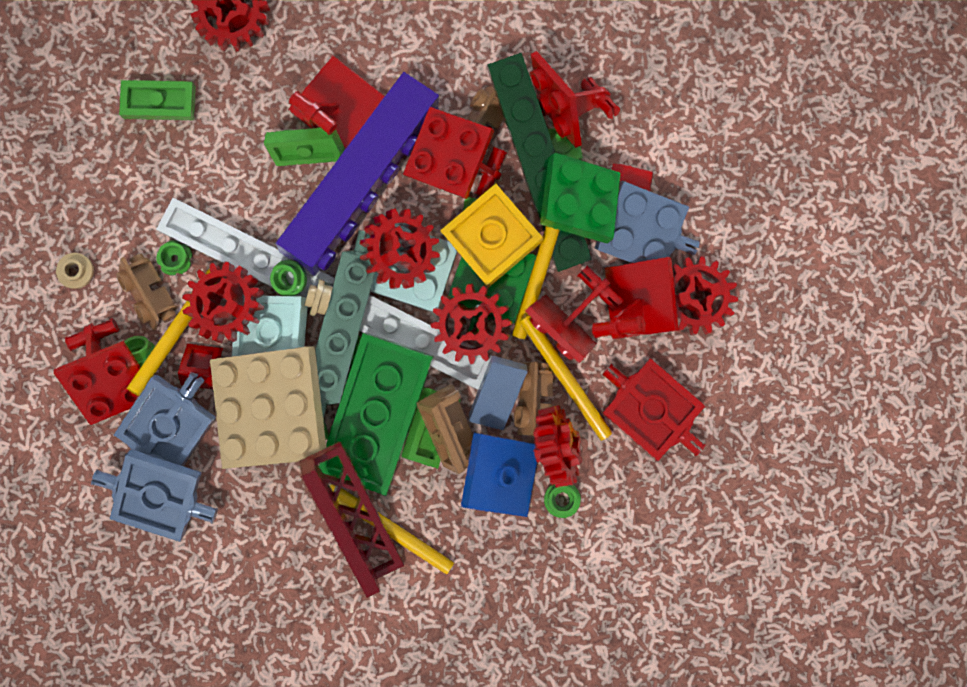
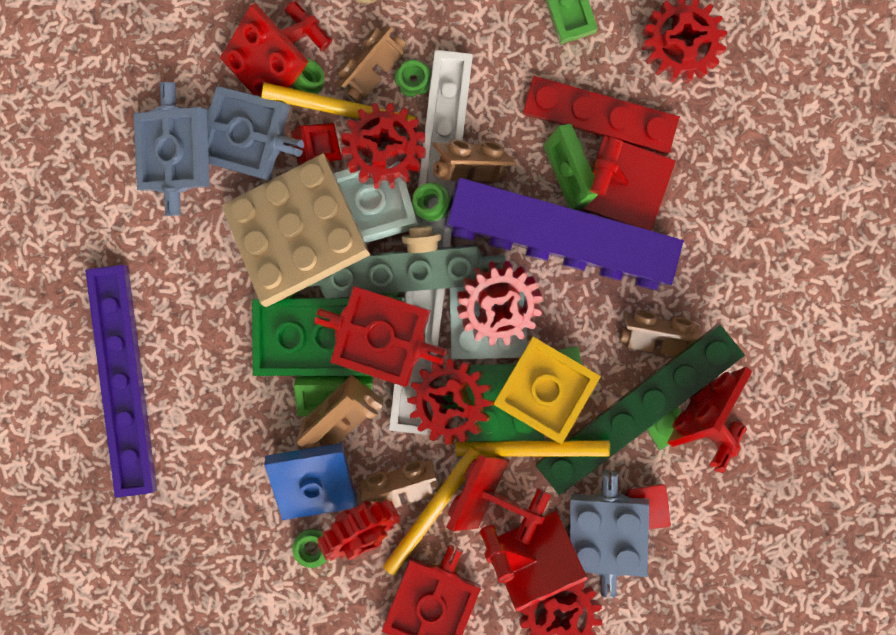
camera: 70 degrees right, 5 degrees up
(258, 238) = (484, 159): none -> medium nougat hinge
(268, 106) = (601, 115): none -> red plate
(337, 522) = (202, 346): dark red fence -> none
(347, 619) = (121, 380): none -> dark purple plate
(389, 362) = (380, 336): none -> red plate
(402, 536) = (224, 389): yellow bar -> none
(452, 153) = (615, 323): red plate -> none
(497, 392) = (392, 450): sand blue tile -> none
(580, 198) = (615, 468): green plate -> none

